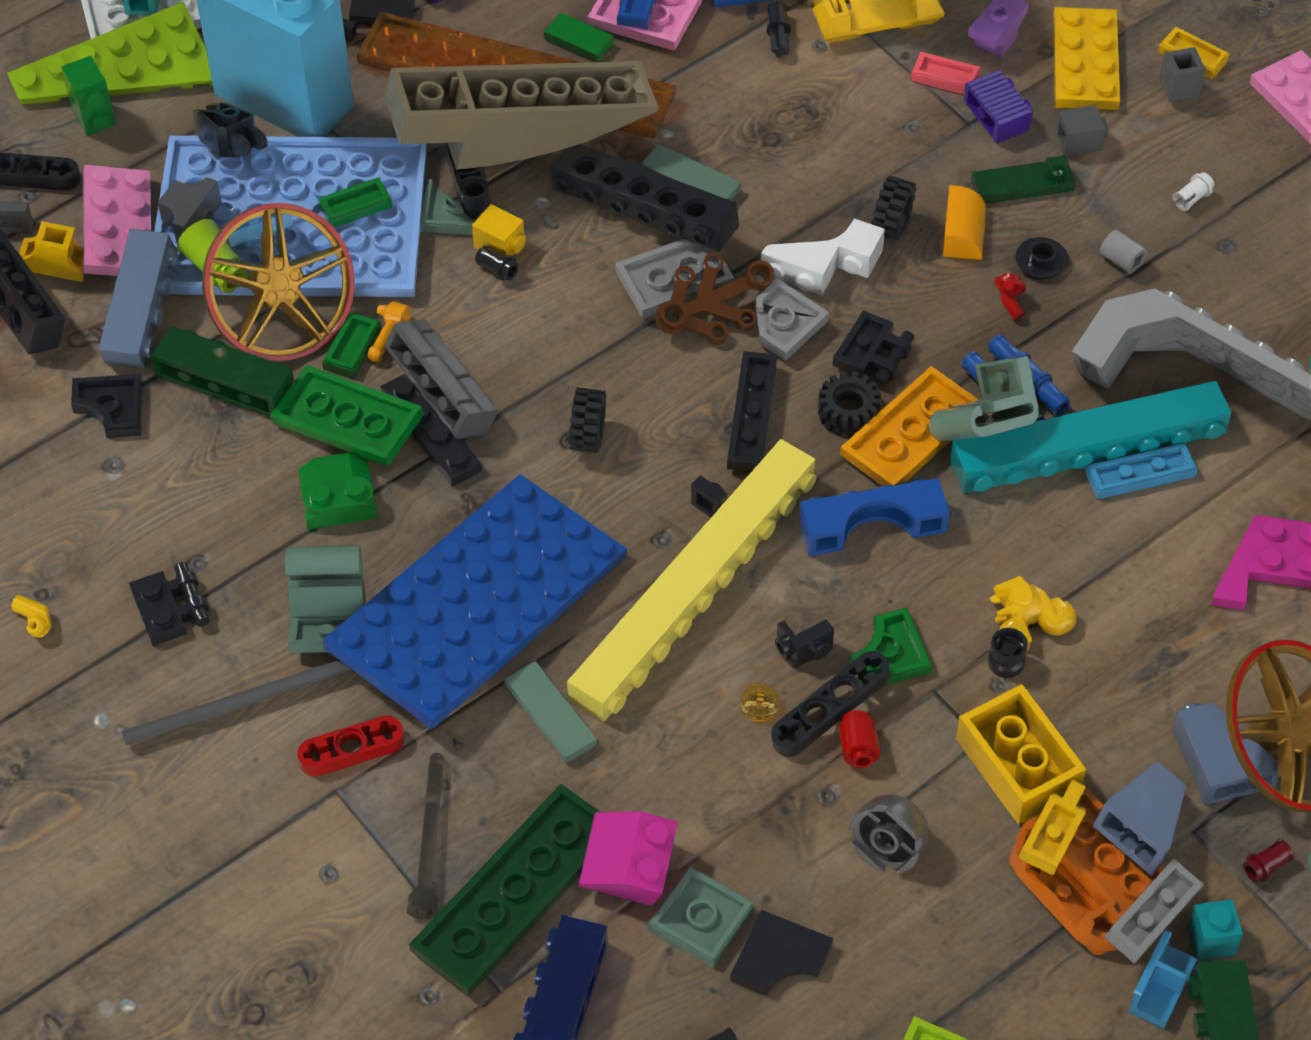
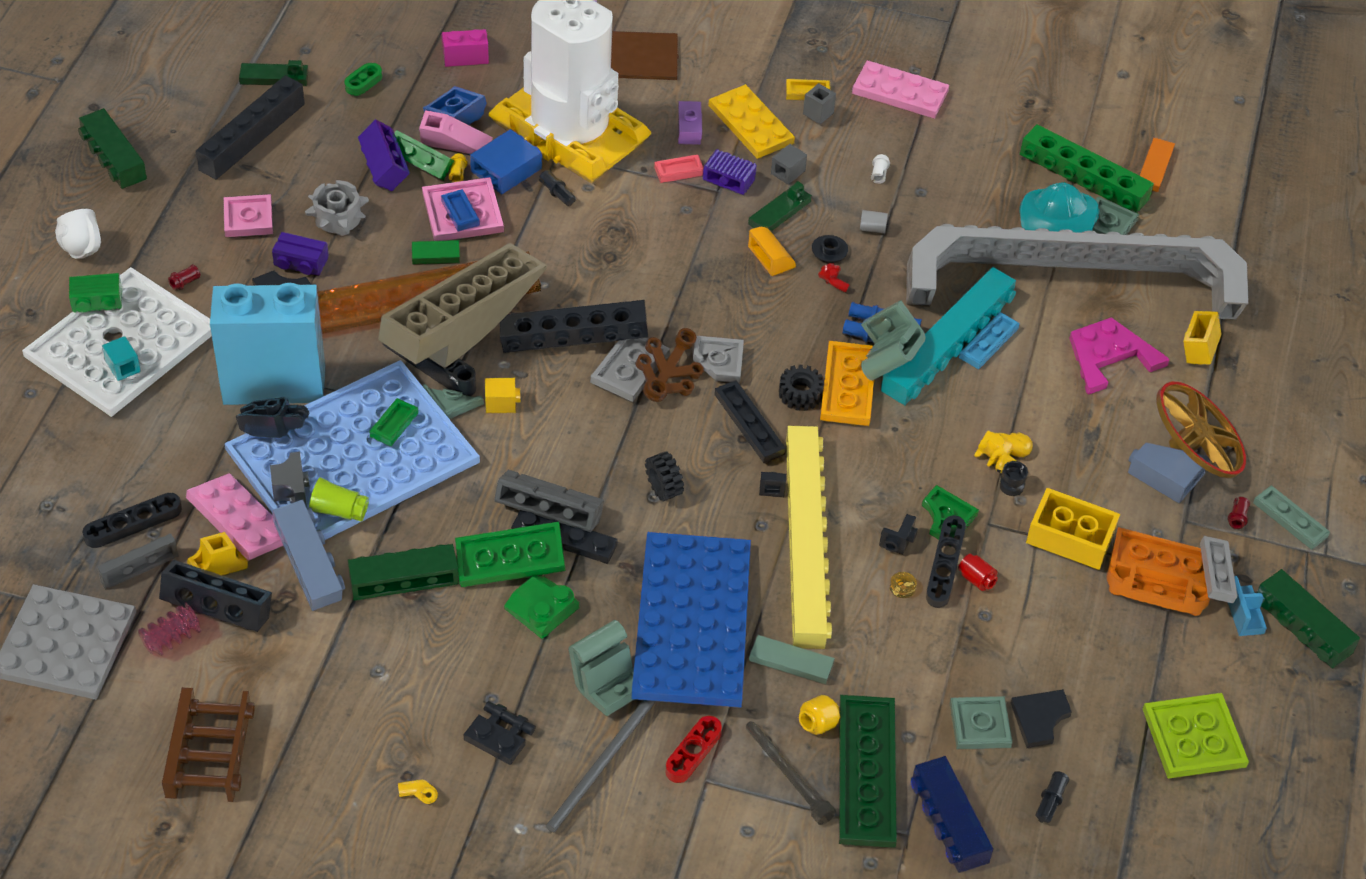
camera: 40 degrees left, 5 degrees down
(88, 95) = (148, 444): green brick -> none
(111, 400) = (341, 630): black tile -> none
(133, 59) = (148, 408): lime wing -> none
(247, 232) = (350, 466): dark azure plate -> none
(278, 281) = (402, 493): pearl gold wheel -> none
(351, 345) = (466, 512): green tile -> none
(391, 313) = (481, 479): light orange piece -> none
(503, 266) = (514, 414): black pin -> none
(517, 791) = (819, 715): none -> yellow head
(628, 855) = (920, 709): dark pink slope -> none
(683, 169) = (581, 298): sand green tile -> none
(814, 263) = (708, 316): white arch -> none
(865, 341) = (778, 350): black plate -> none
(890, 833) = (1045, 612): flat silver cylinder -> none
(894, 206) = (728, 259): black tyre -> none
(913, 506) = (891, 426): blue arch -> none
(1054, 829) = (1133, 555): yellow hinge -> none
(1144, 816) = (1168, 524): sand blue slope -> none
(1215, 929) = (1249, 563): teal brick -> none

